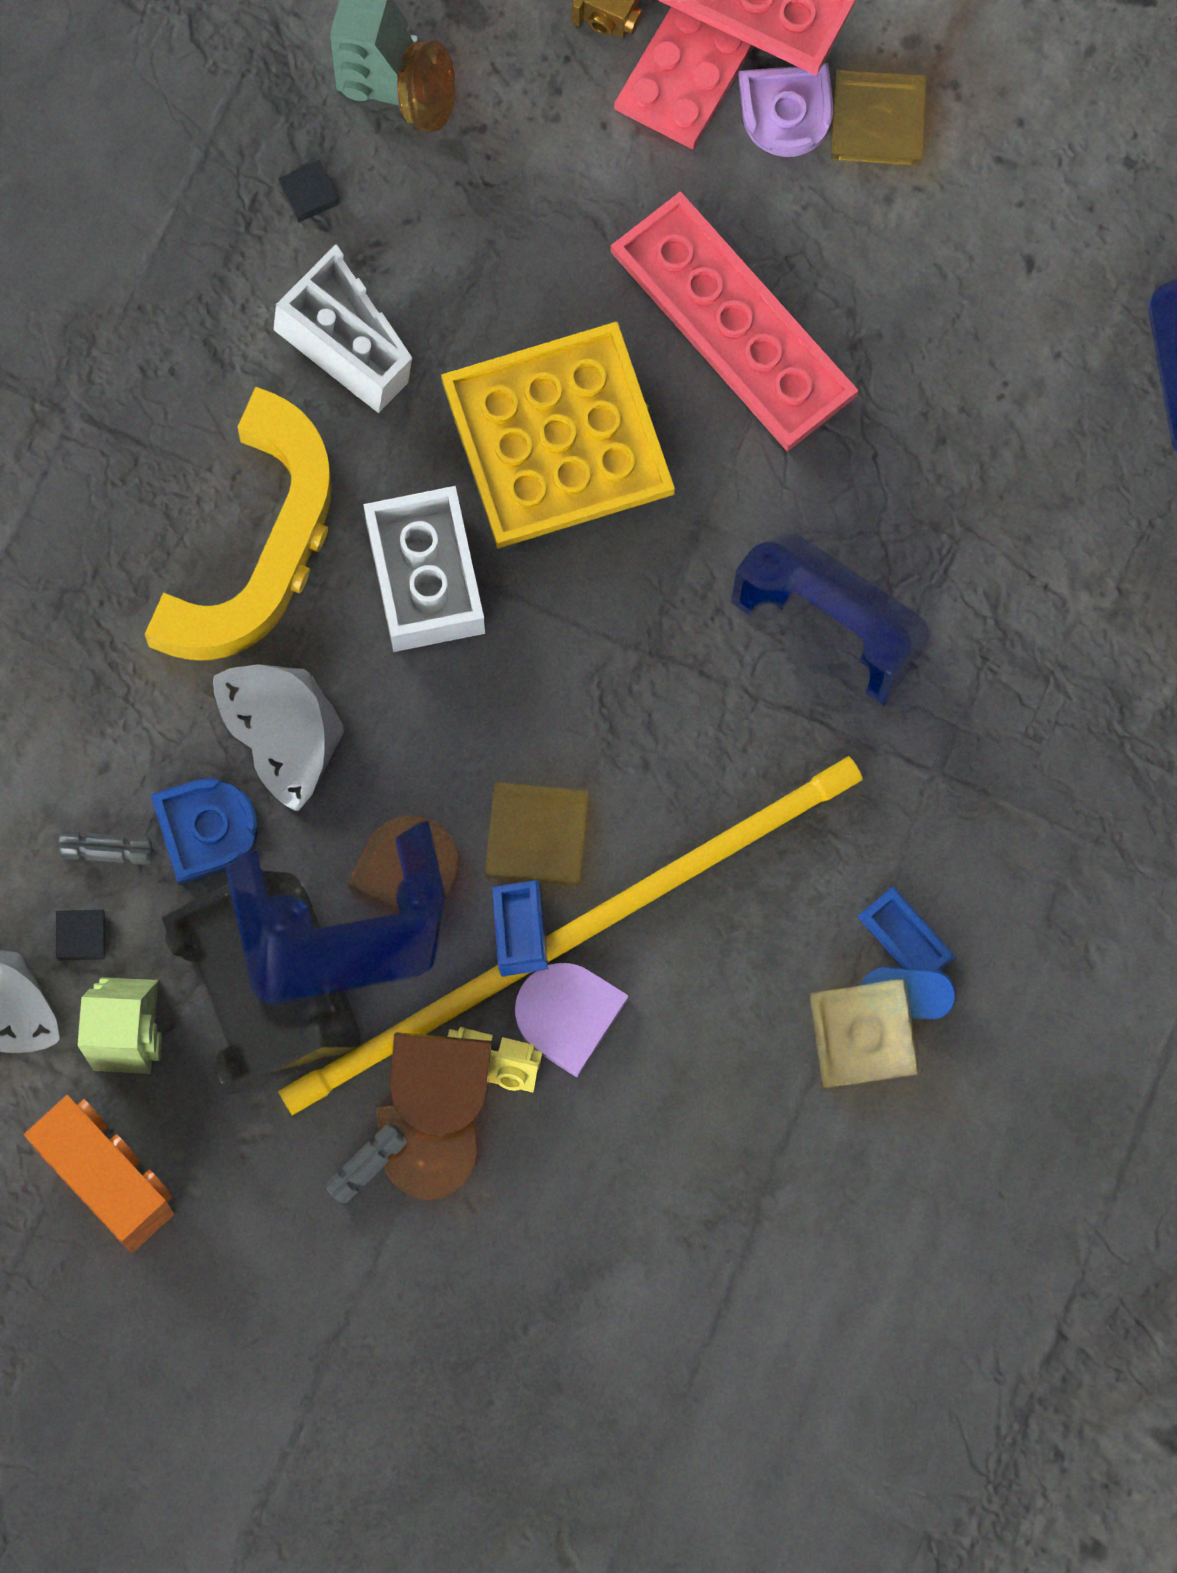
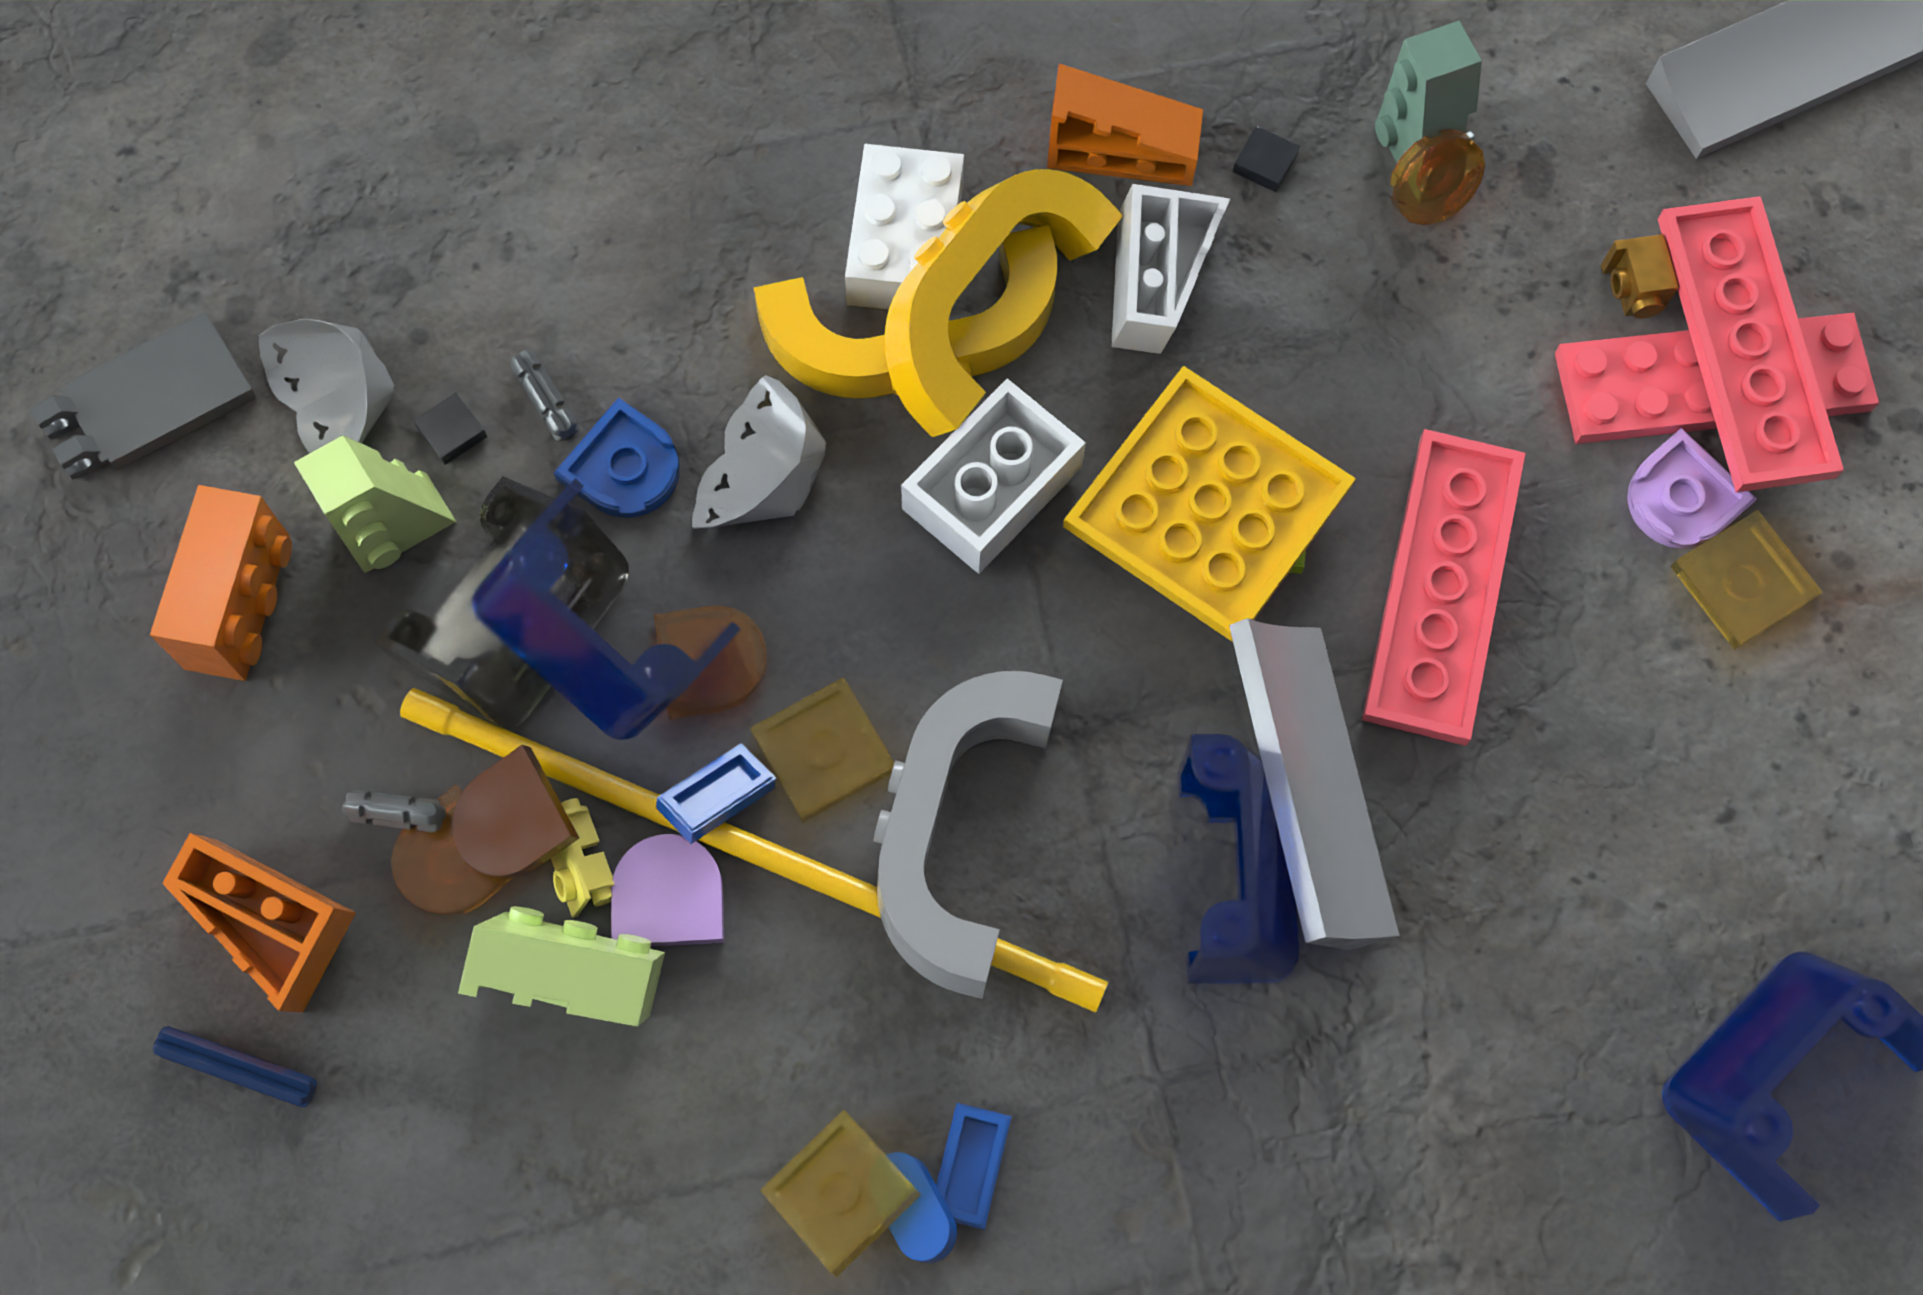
camera: 55 degrees right, 5 degrees down
(173, 491) = (897, 210): none -> white brick
(214, 278) = (1121, 130): none -> orange wedge
(248, 482) = (916, 328): none -> yellow arch
(382, 1303) = (261, 917): none -> orange wedge
(475, 1394) = (235, 1066): none -> dark blue axle
(576, 1112) = (563, 966): none -> yellowish green wedge
(702, 850) = (981, 709): none -> light grey arch
(814, 515) = (1314, 785): none -> light grey arch

